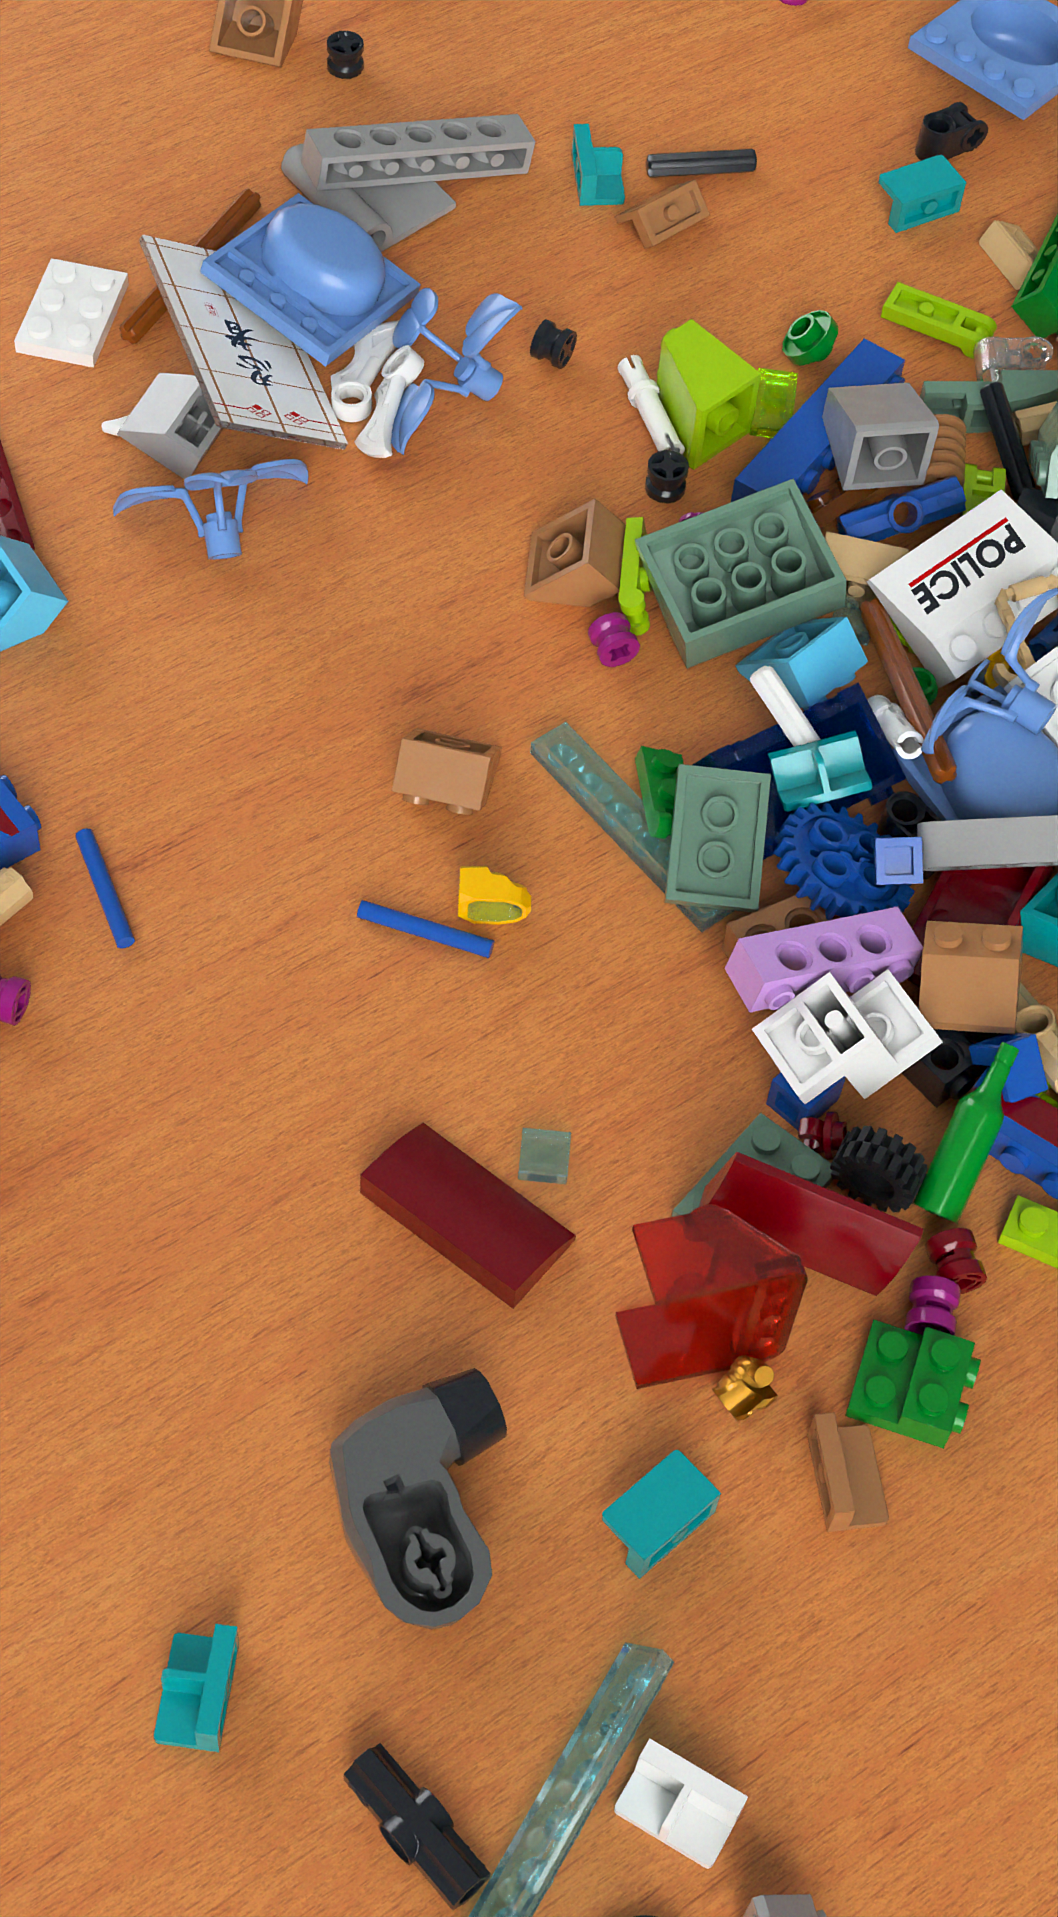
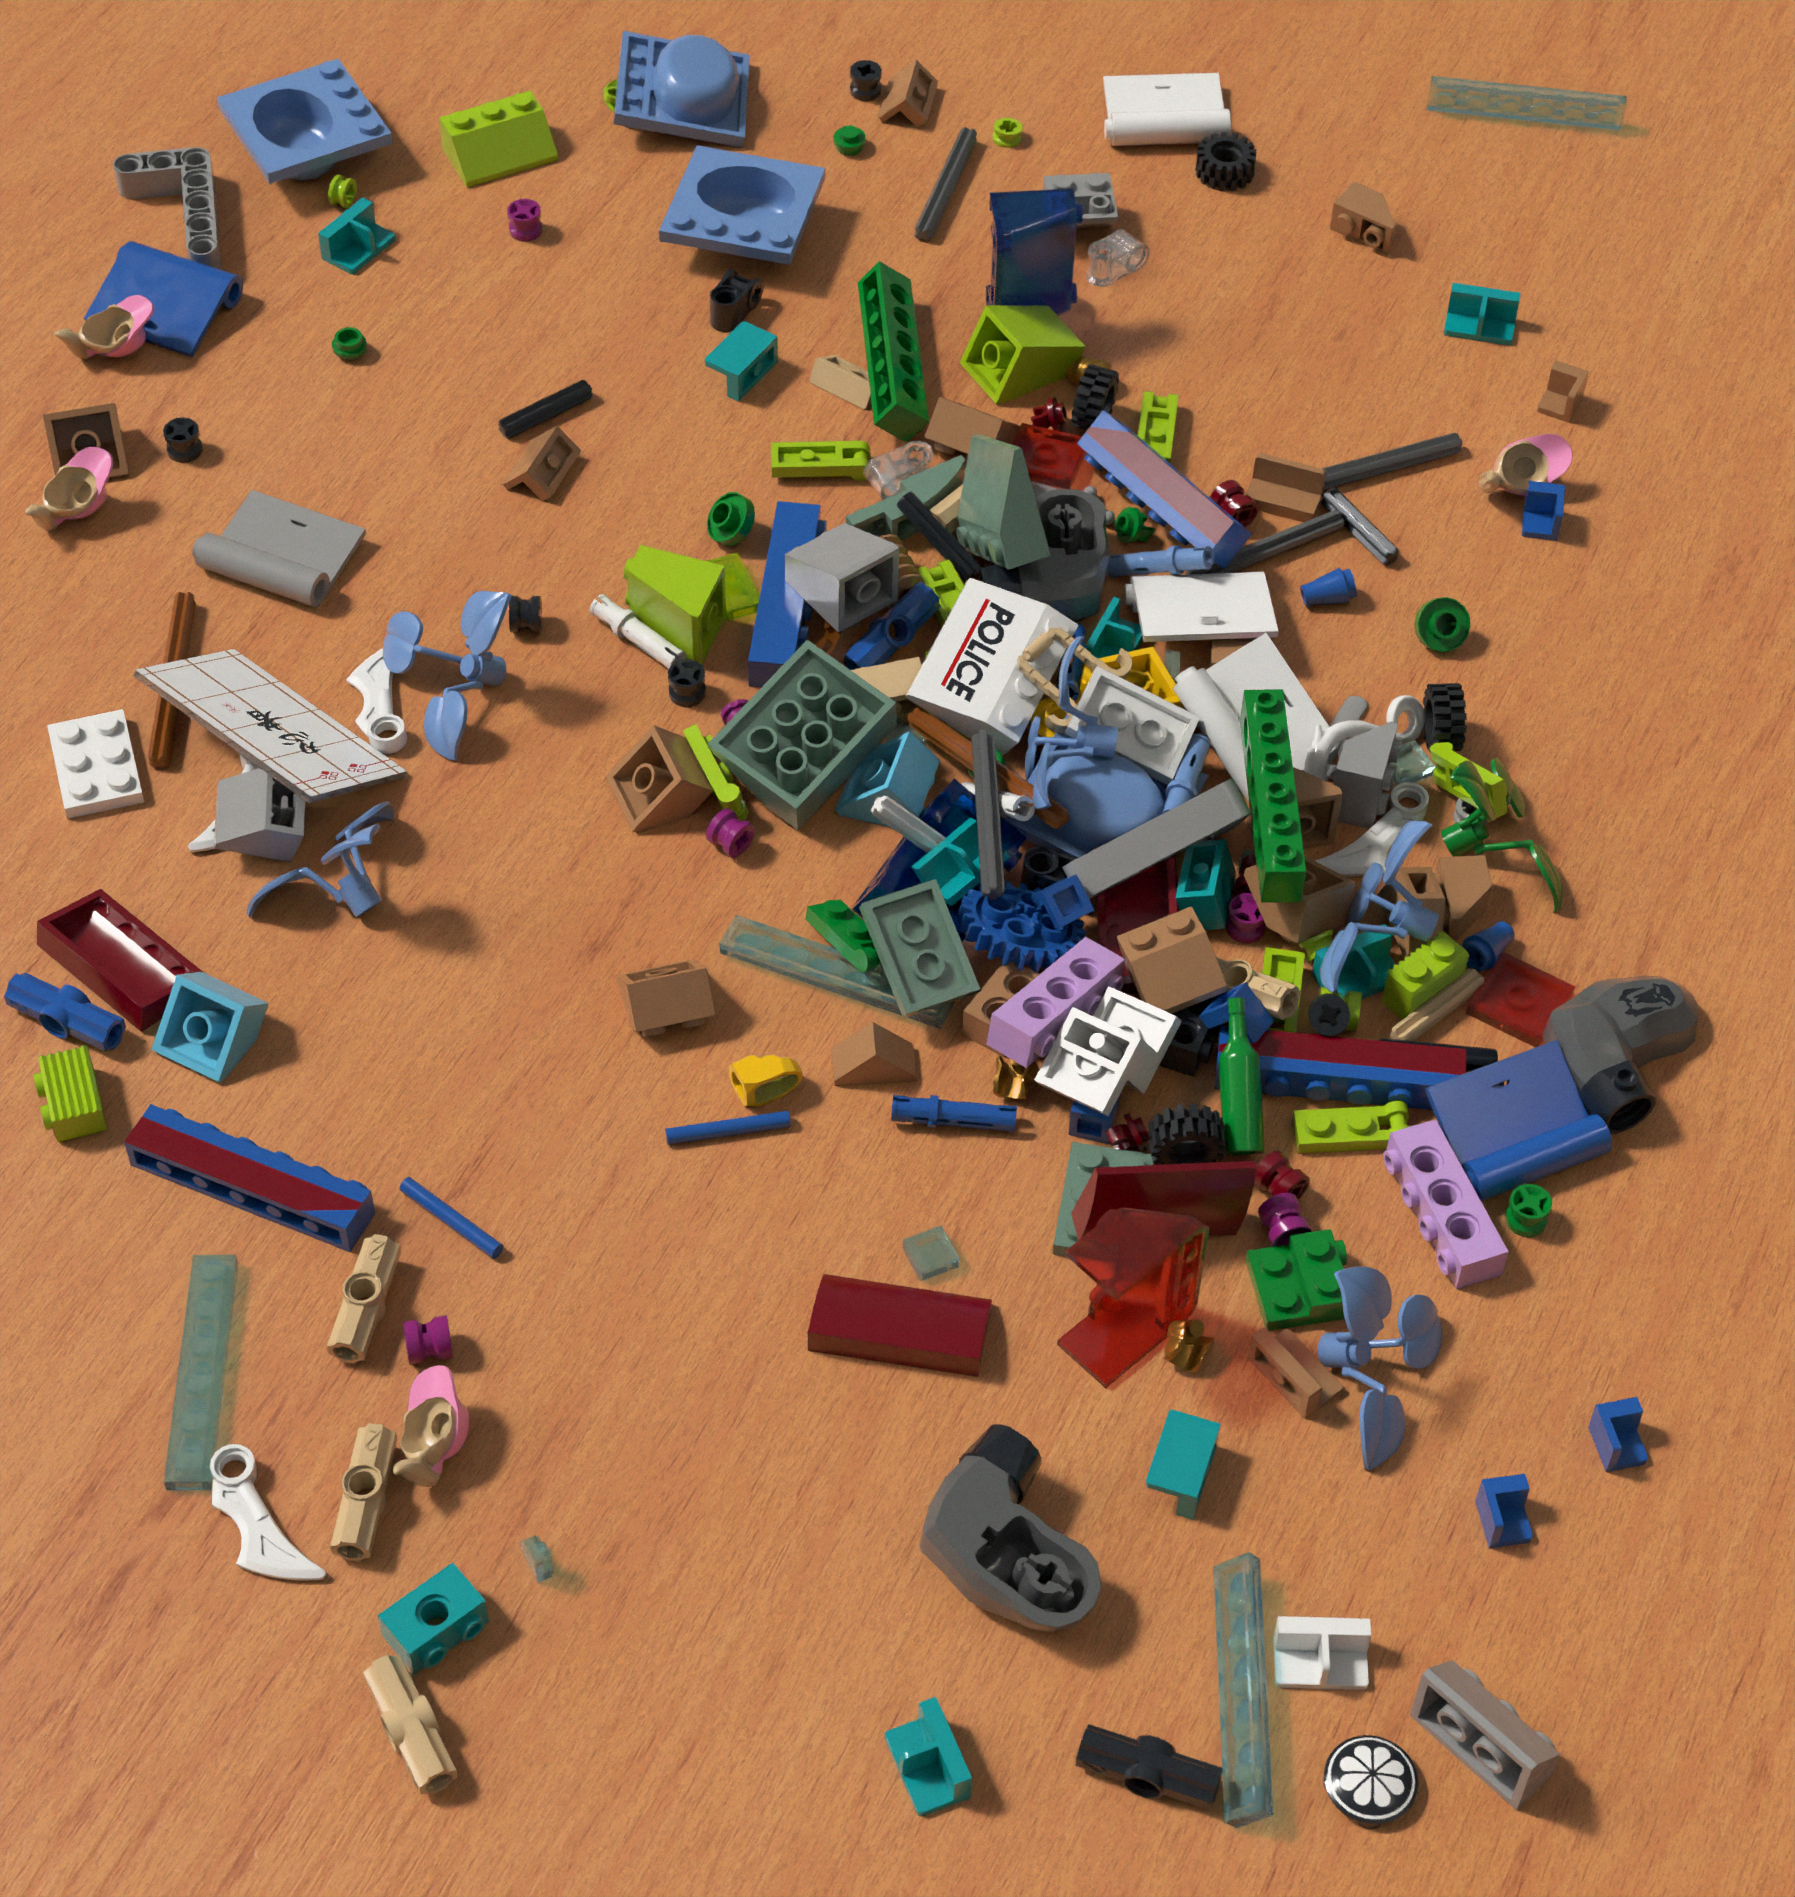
camera: 25 degrees left, 5 degrees down
(213, 59) = (75, 489): none -> tan hair
(312, 277) = (291, 643): medium blue piece -> none
(398, 373) = (428, 749): white piece -> none
(417, 151) = (309, 499): light grey brick -> none
(555, 29) = (349, 343): none -> green plate
(596, 170) = (462, 451): teal panel -> none
(615, 929) = (873, 1058): none -> medium nougat slope
(643, 1015) = (953, 1113): none -> blue pin
(735, 1019) = (1013, 1079): none -> pearl gold arm
(871, 736) = (988, 815): none -> dark grey axle
(938, 1445) = (1365, 1304): none -> medium blue plant
(981, 1755) = (1502, 1510): none -> blue panel

